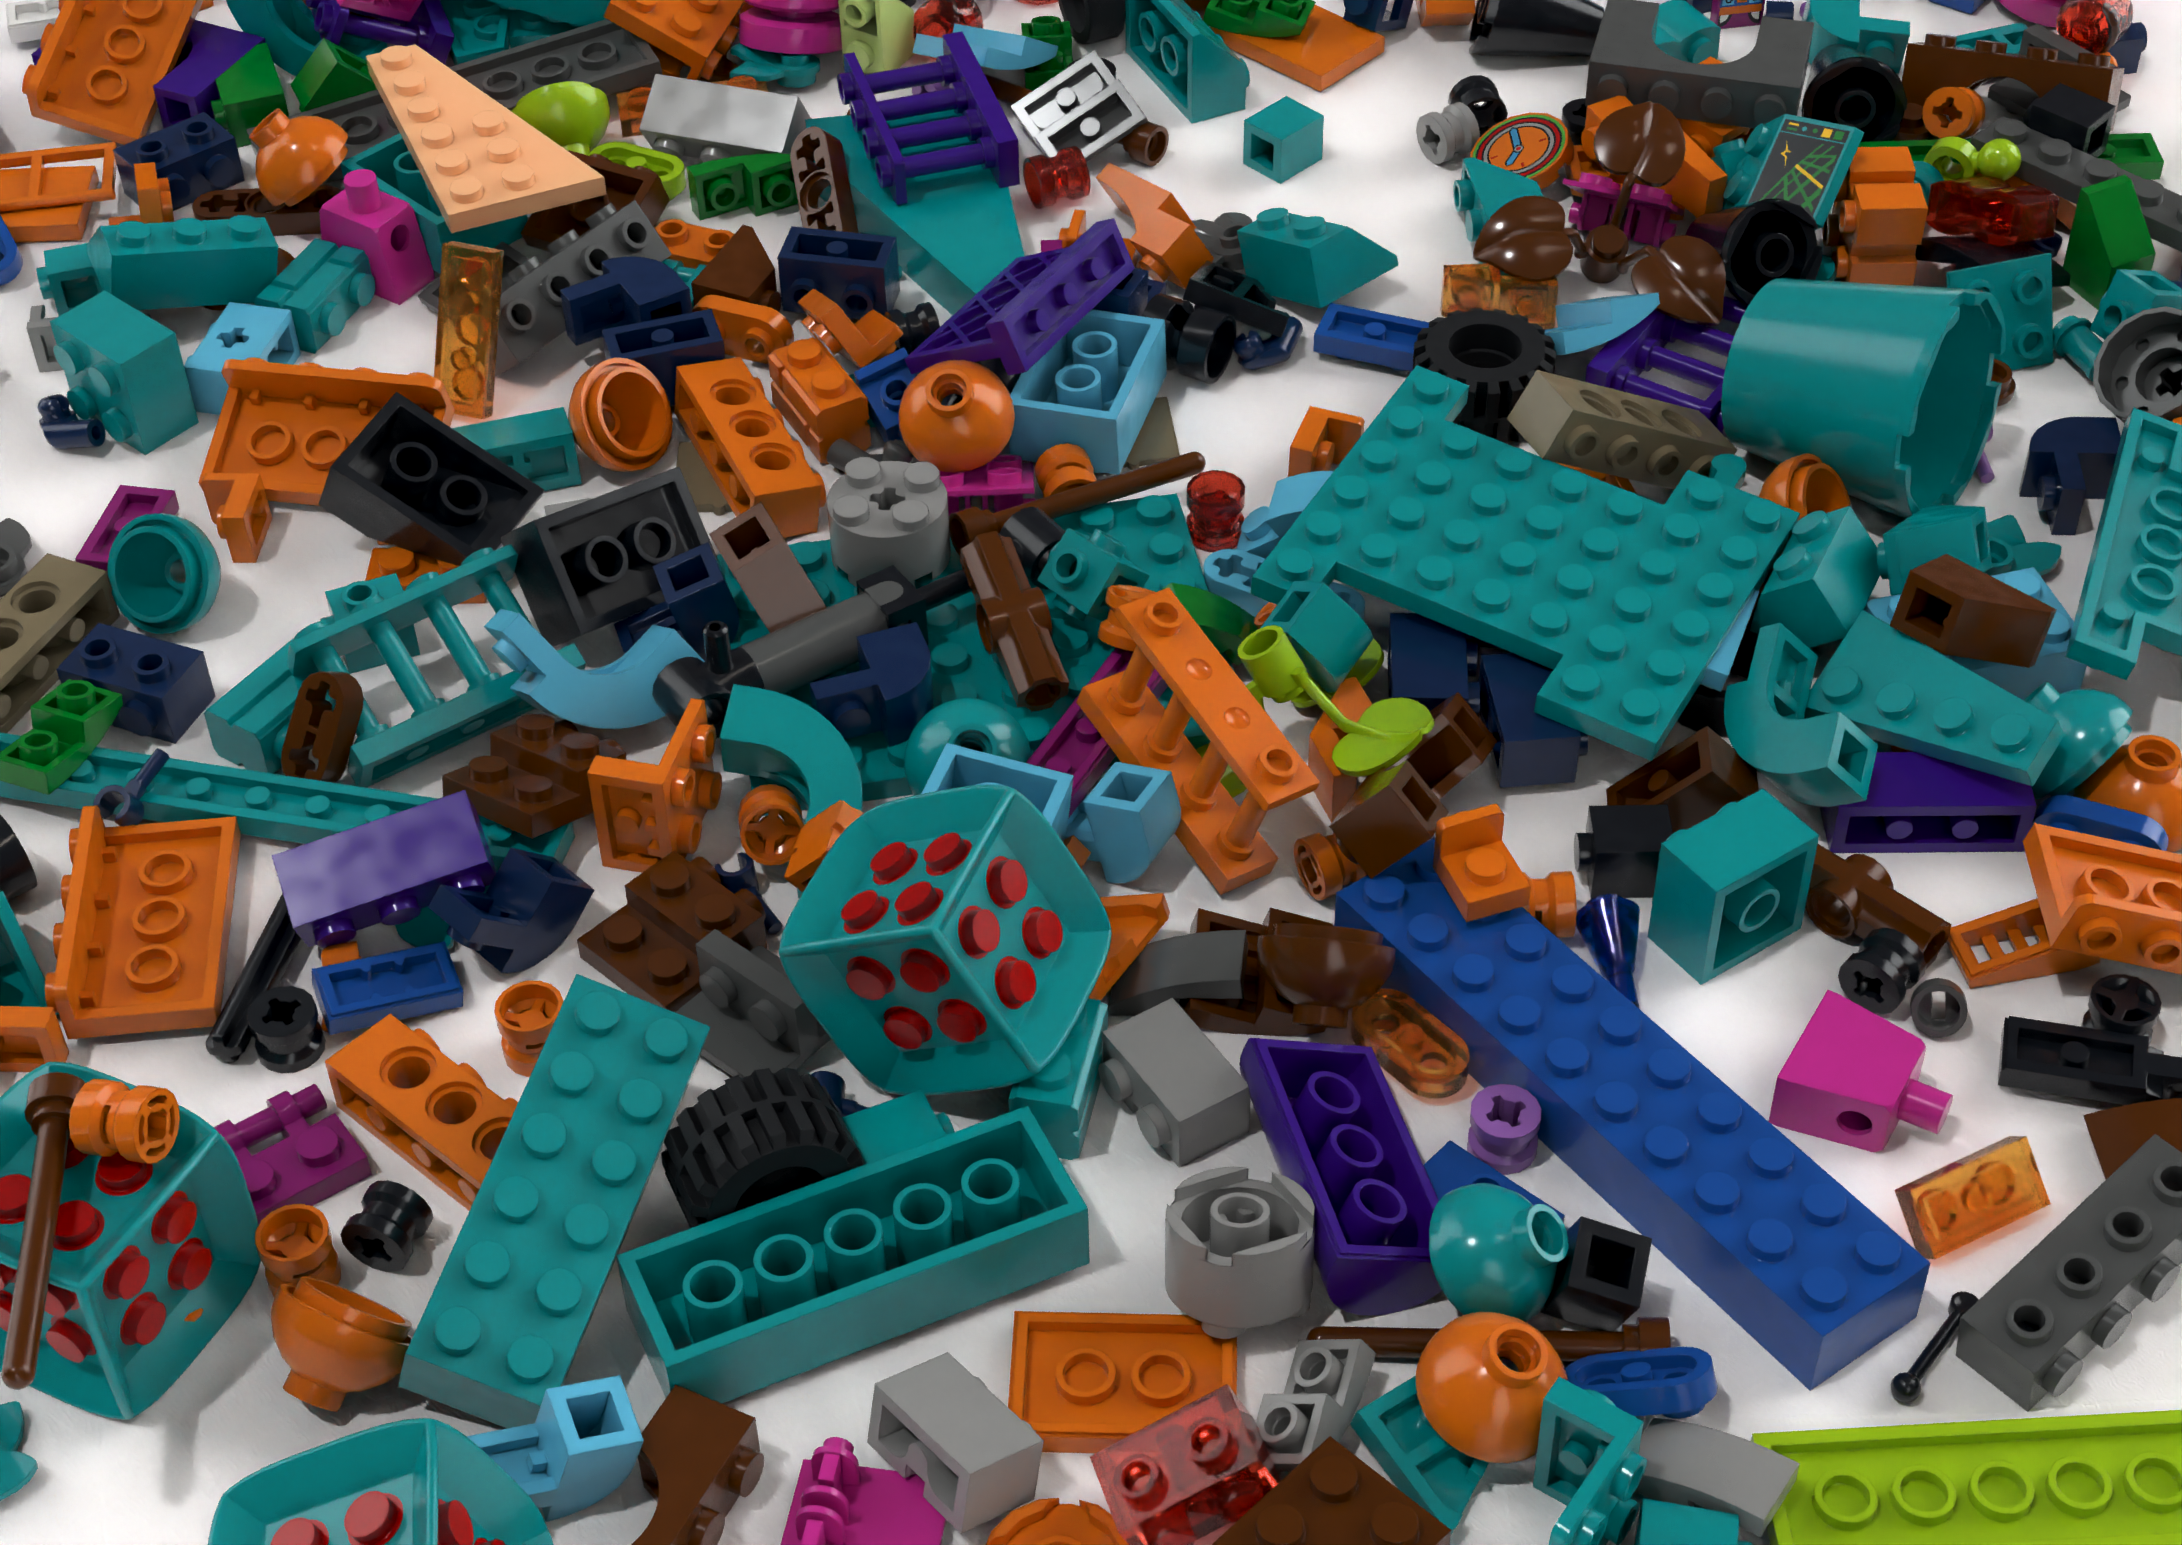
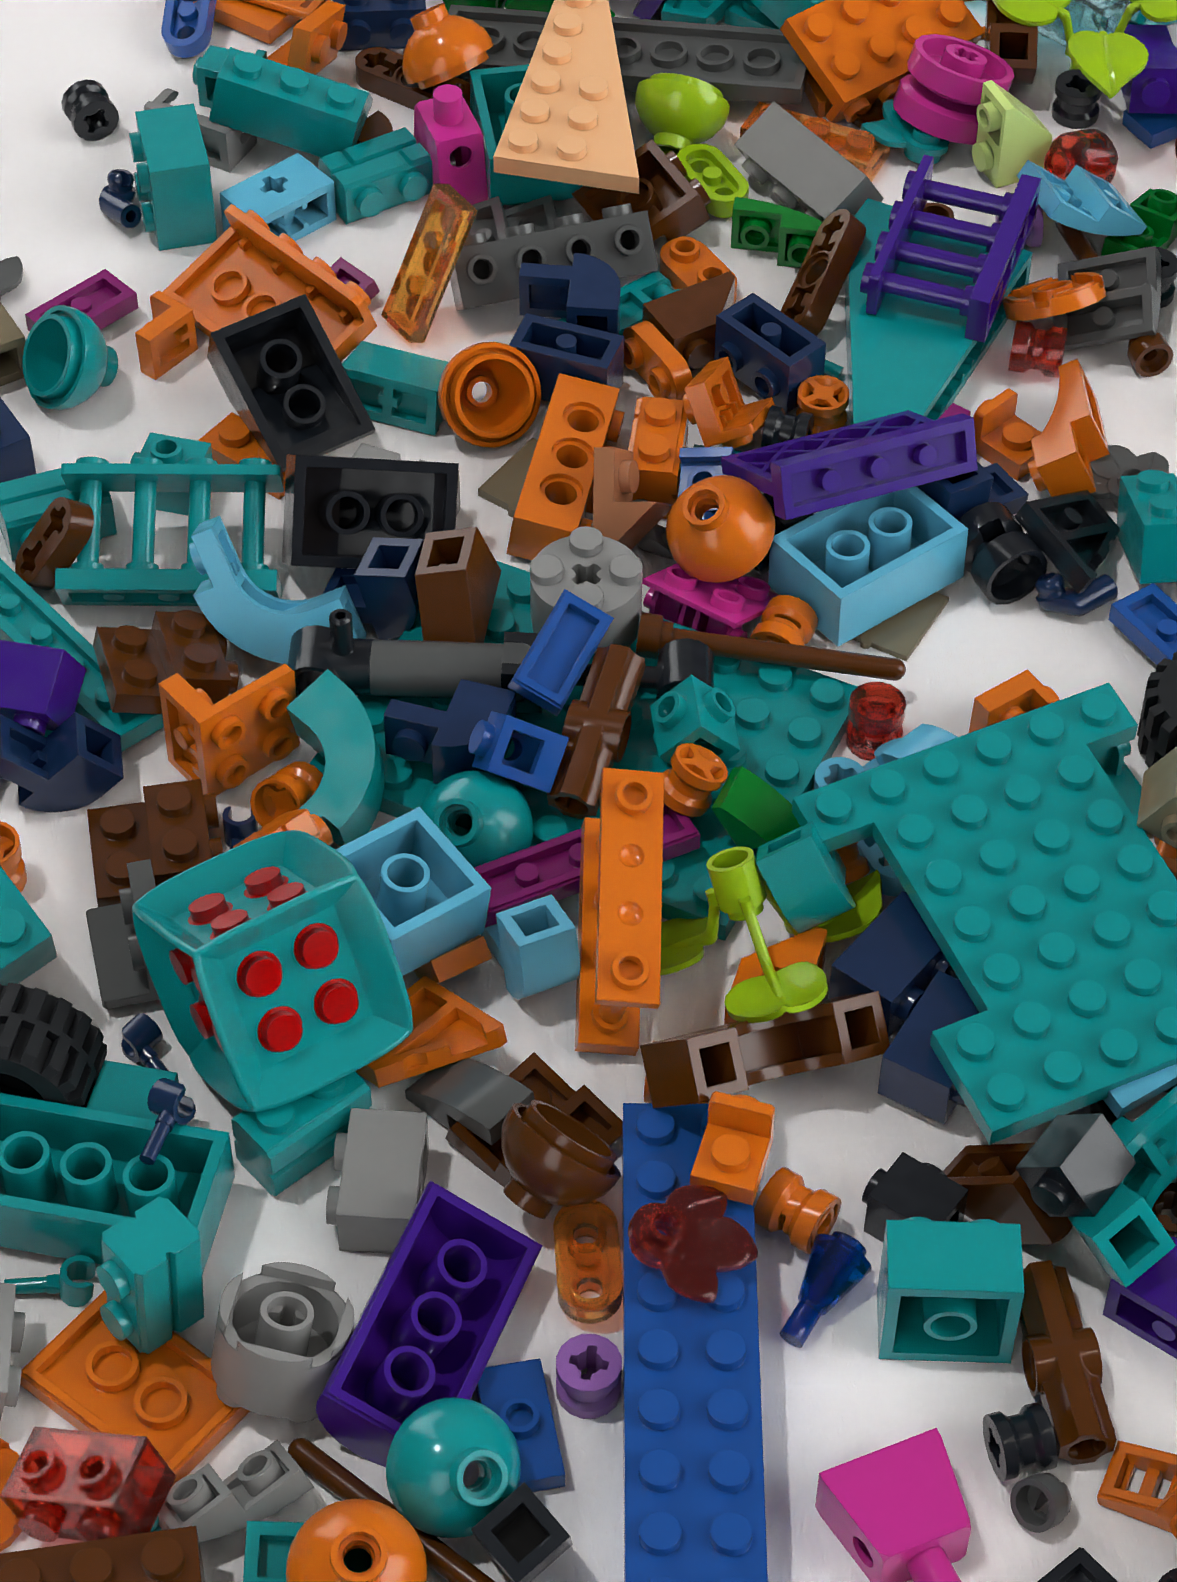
camera: 35 degrees right, 5 degrees up
(825, 420) = (613, 505): none -> nougat slope
(918, 287) = (826, 399): none -> orange wheel
(931, 569) = (560, 652): none -> blue tile
(954, 1109) = (172, 1106): none -> dark blue hand
(955, 667) = (535, 752): none -> blue brick
(971, 1337) = (72, 1293): none -> teal hand
(1050, 122) = (1054, 297): none -> orange tile
(1083, 1258) = (151, 1276): none -> teal brick
(1518, 954) = (696, 1240): none -> clear red plate
(1754, 725) = (1075, 1165): none -> black brick

